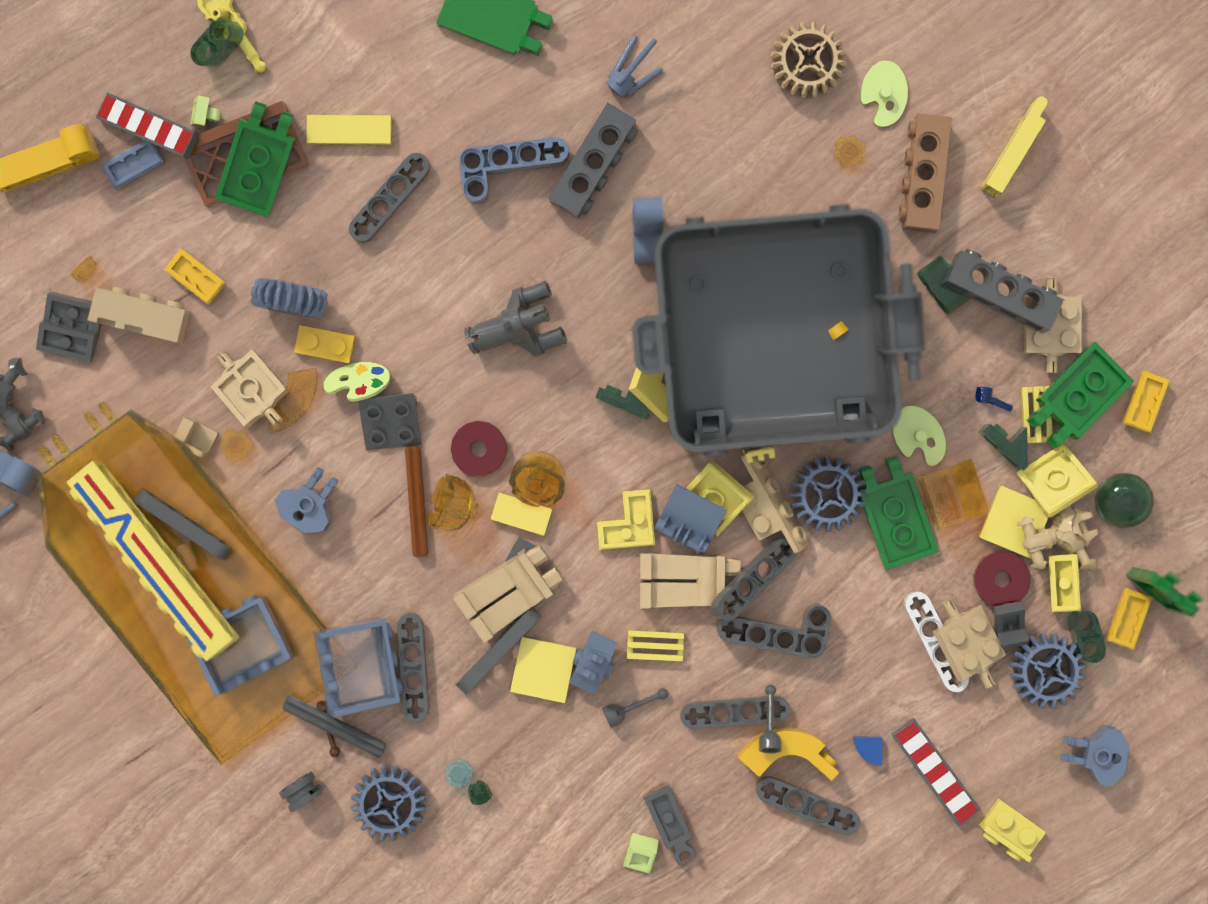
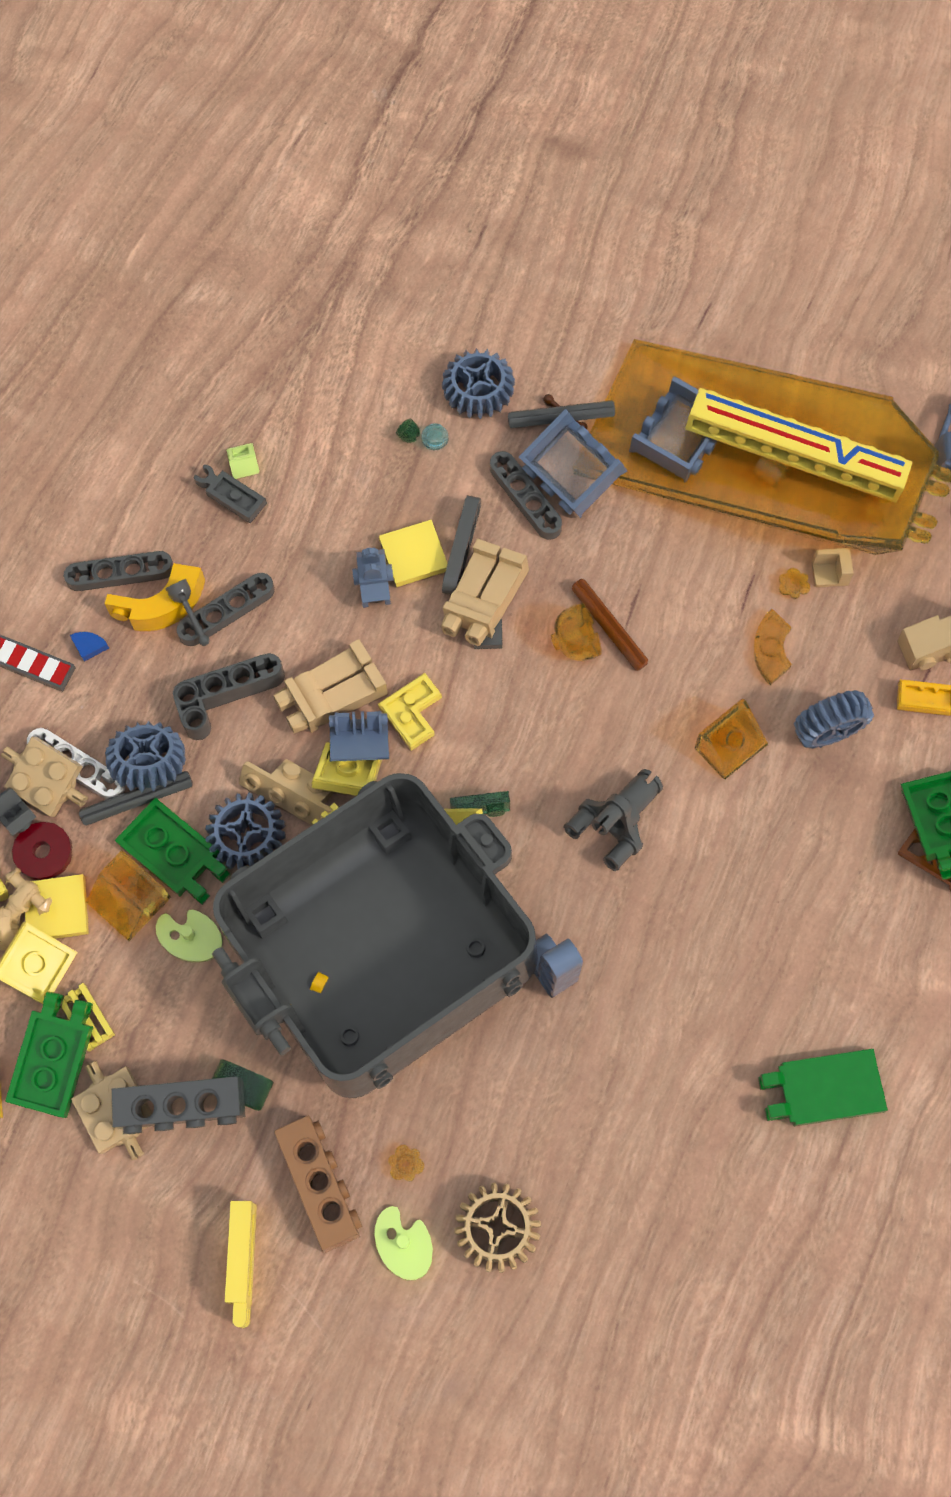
camera: 150 degrees right, 20 degrees down
(183, 524) = (793, 494): dark grey beam -> none
(249, 388) = (814, 631): tan plate -> none
(301, 791) = (555, 351): dark grey wheel -> none
(309, 502) = (700, 566): sand blue hinge -> none
(324, 344) = (778, 706): yellow plate -> none
(349, 129) = (883, 903): light yellow tile -> none
(364, 380) = (720, 690): yellowish green piece -> none
(382, 334) = (731, 740): none -> clear yellow slope
(386, 194) = (805, 864): dark grey beam -> none
(390, 421) = (677, 675): dark grey hinge -> none
(462, 445) = (584, 681): dark red tile -> none
(514, 162) = (714, 960): sand blue beam -> none
(520, 515) = (511, 665): light yellow tile -> none
(538, 479) = (515, 696): clear yellow cylinder -> none
(609, 120) = (646, 956): dark grey brick -> none
(616, 714) = (330, 551): dark grey hinge -> none
(622, 80) = (663, 1097): sand blue plant -> none
(654, 656) = (323, 615): light yellow tile -> none
(756, 582) = (275, 720): dark grey beam -> none
(895, 598) = (145, 764): none -> sand blue gear
(901, 580) = (132, 799): none -> dark grey axle
(984, 395) = (145, 1005): clear blue hand -> none
(1013, 449) = (93, 968): clear green slope -> none

